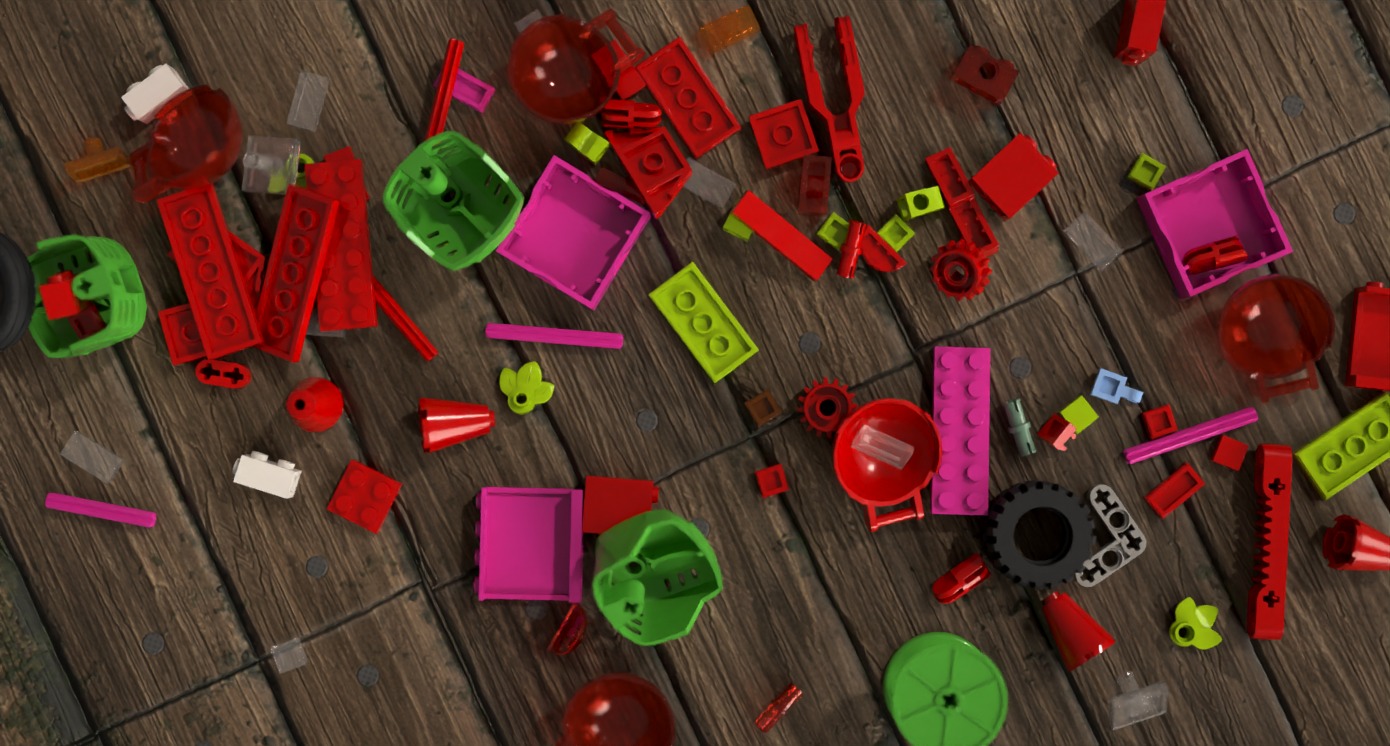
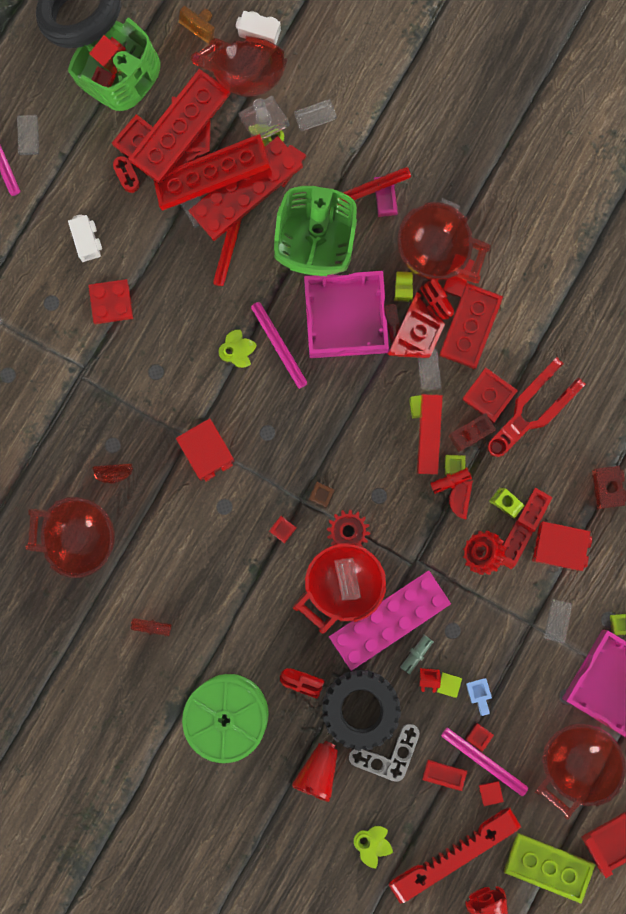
camera: 60 degrees right, 5 degrees down
(315, 404) = (143, 236): red cone -> none
(451, 422) = (187, 320): red cone -> none
(530, 543) = (147, 414): dark pink panel -> none
(664, 548) = (199, 493): bright green piece -> none
(703, 322) = (347, 425): lime tile -> none
(729, 29) = (528, 322): clear orange tile -> none
(896, 232) = (479, 501): lime tile -> none
(1136, 703) = (301, 841): clear tile -> none
(1215, 255) = (601, 699): red arm -> none

